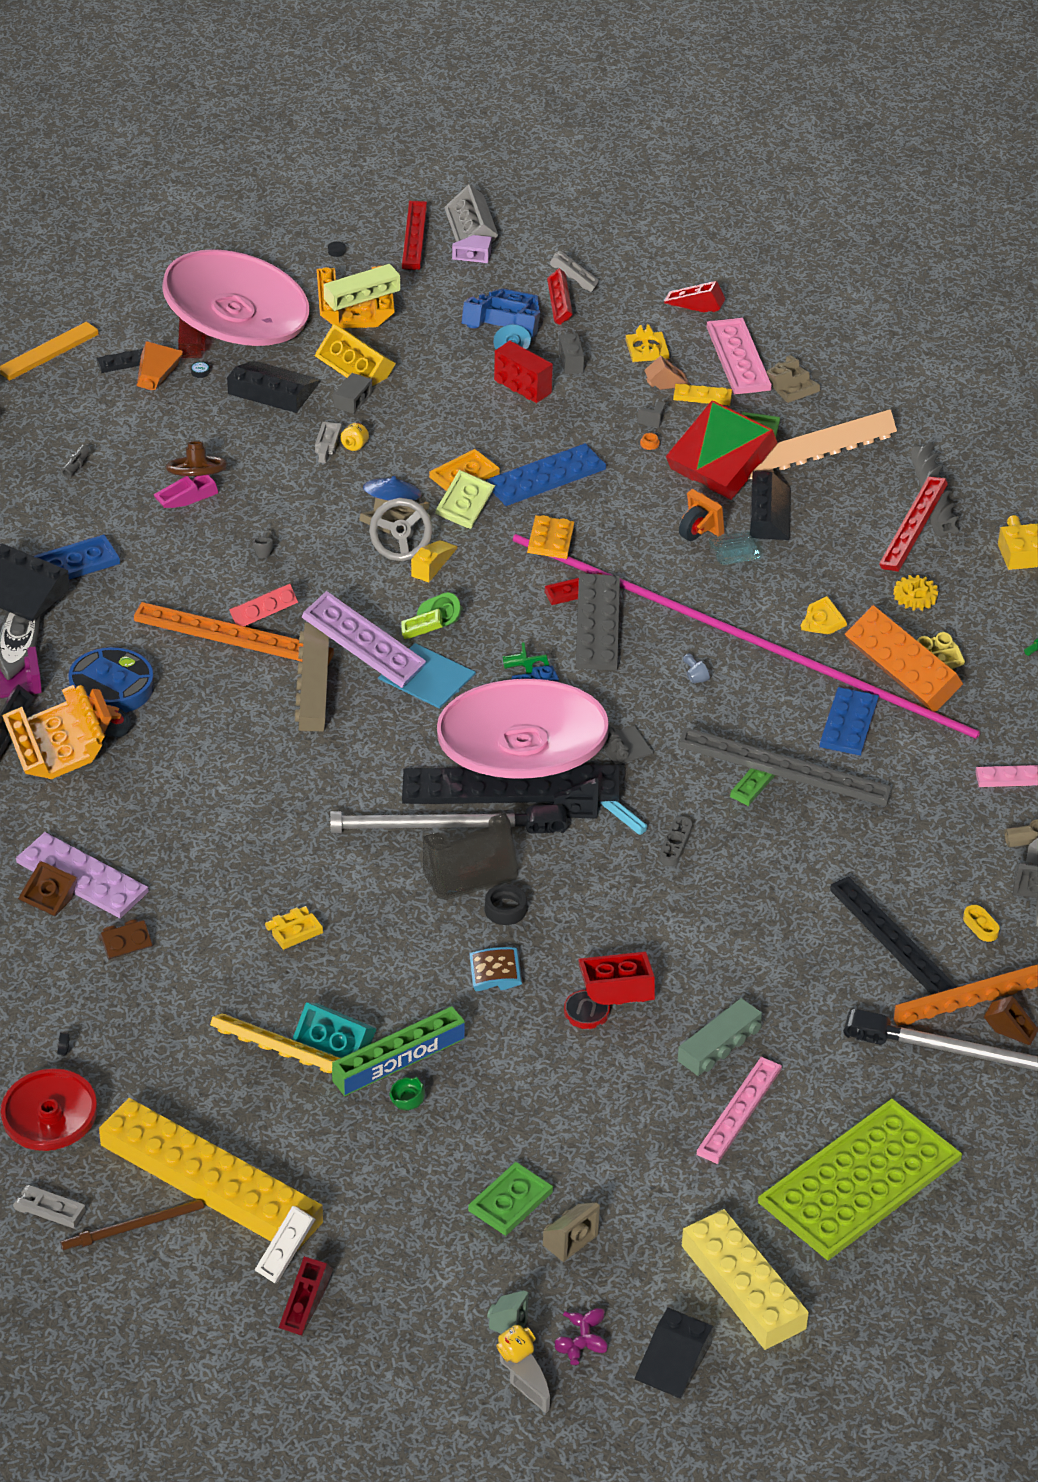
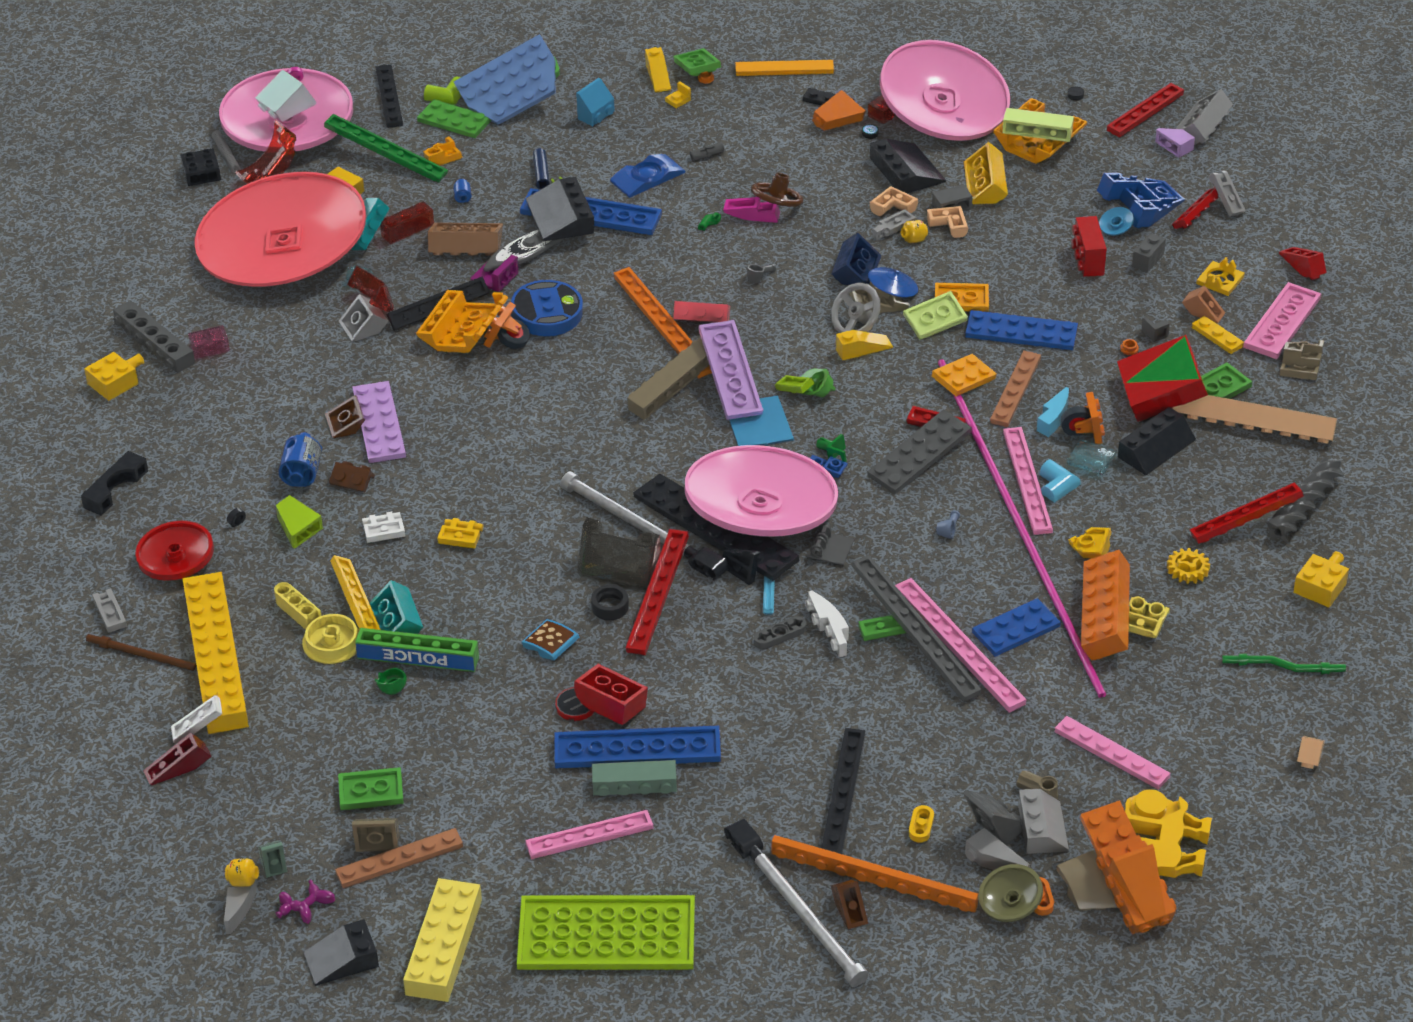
camera: 45 degrees right, 0 degrees up
(43, 512) = (646, 174): none -> blue slope
(65, 951) = (300, 460): none -> blue cylinder
(126, 1009) = (297, 520): none -> lime slope
(157, 522) = (708, 220): none -> green arm
(219, 968) = (383, 527): none -> white plate
(293, 1095) = (321, 631): none -> light yellow beam
(301, 417) = (893, 198): none -> light nougat brick
(338, 490) = (855, 261): none -> dark blue slope
(372, 407) = (948, 216): none -> light nougat brick
(543, 873) = (657, 592): none -> red plate
(603, 526) = (1015, 388): none -> nougat plate
(610, 1241) = (399, 858): none -> nougat plate
(663, 528) = (1052, 413): none -> medium azure slope
(685, 1011) = (637, 745): none -> blue plate
(703, 803) = (830, 620): none -> white slope
(707, 597) = (1027, 481): none -> bright pink tile
(733, 579) = (1060, 480): none -> medium azure brick
(856, 766) = (962, 646): none -> bright pink plate

